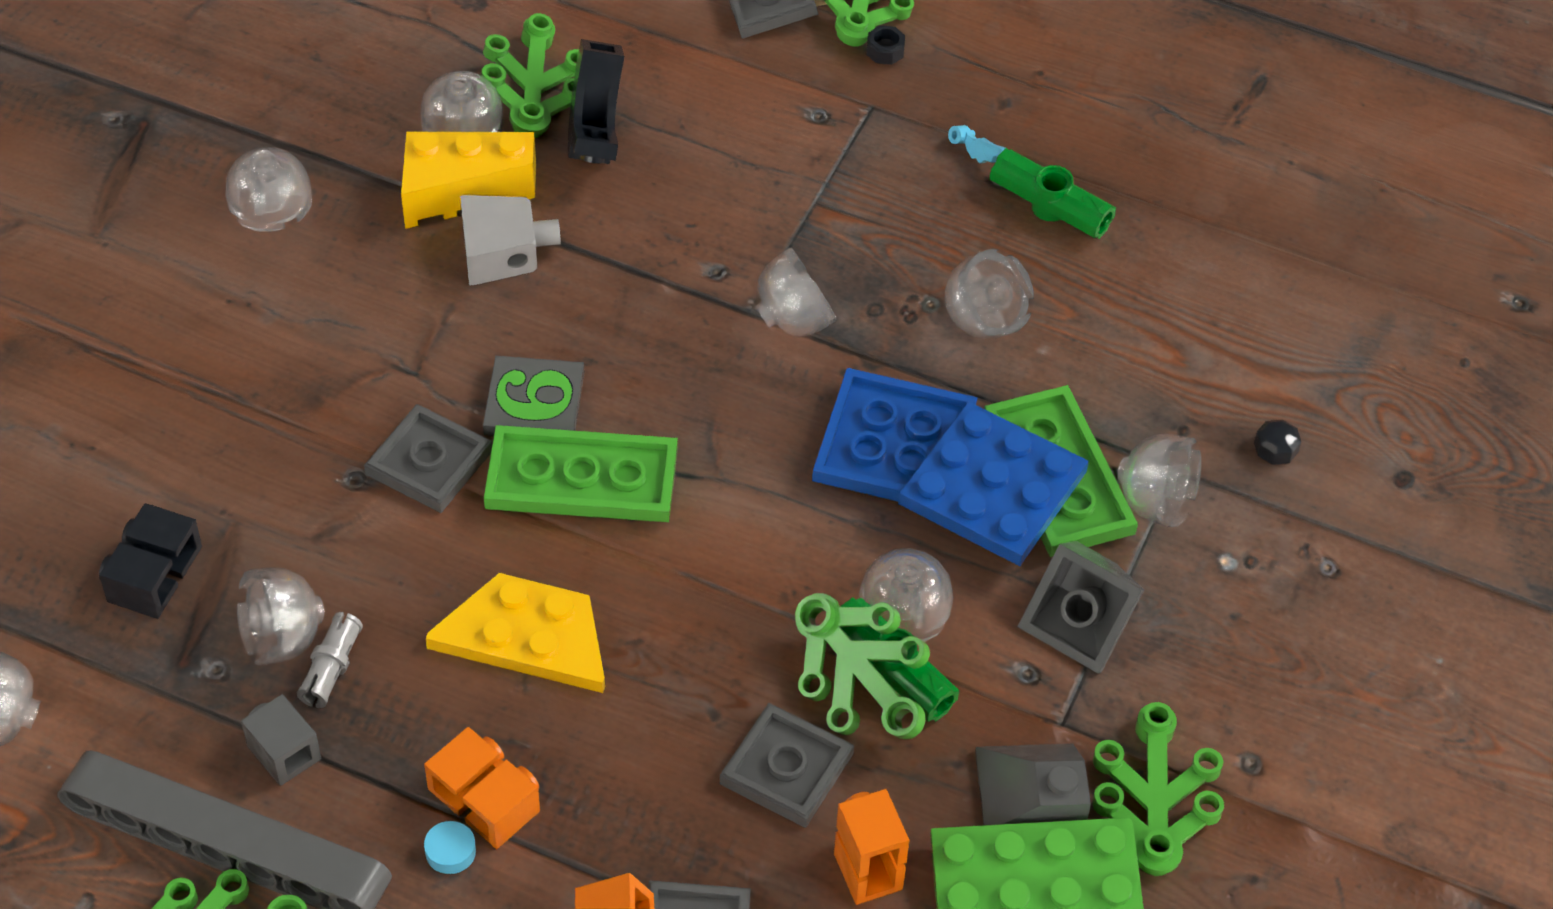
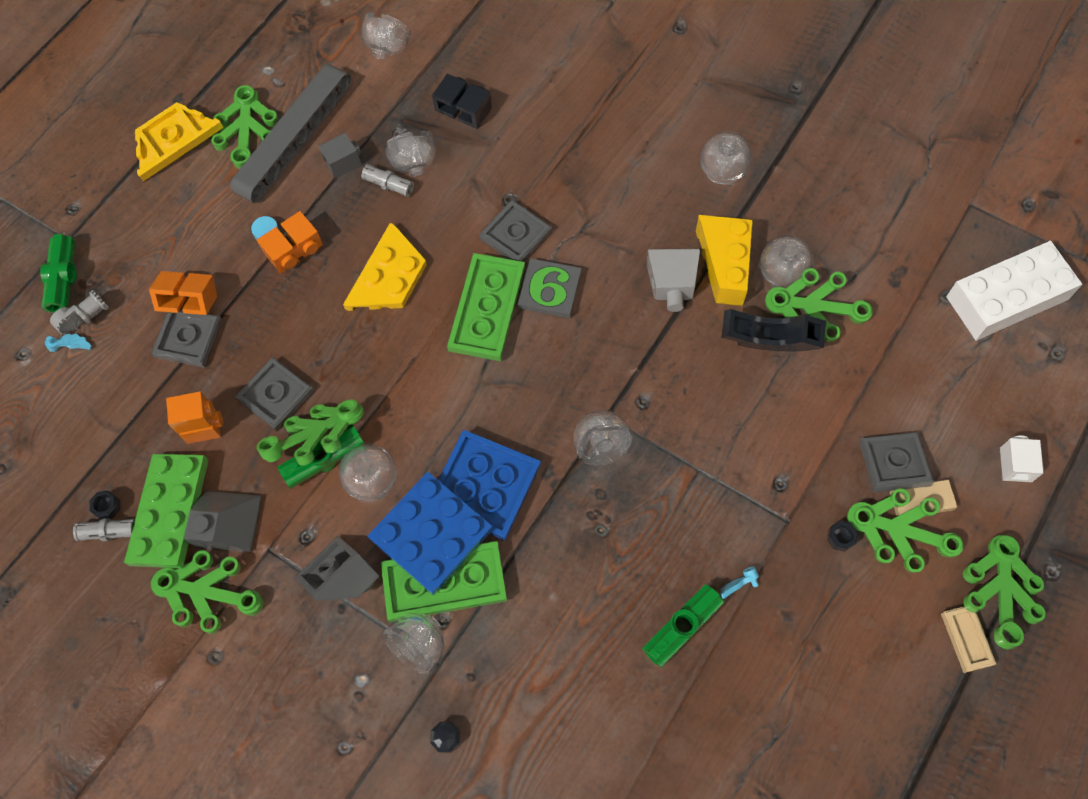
camera: 105 degrees right, 15 degrees up
(989, 295) = (580, 556): clear cylinder -> none

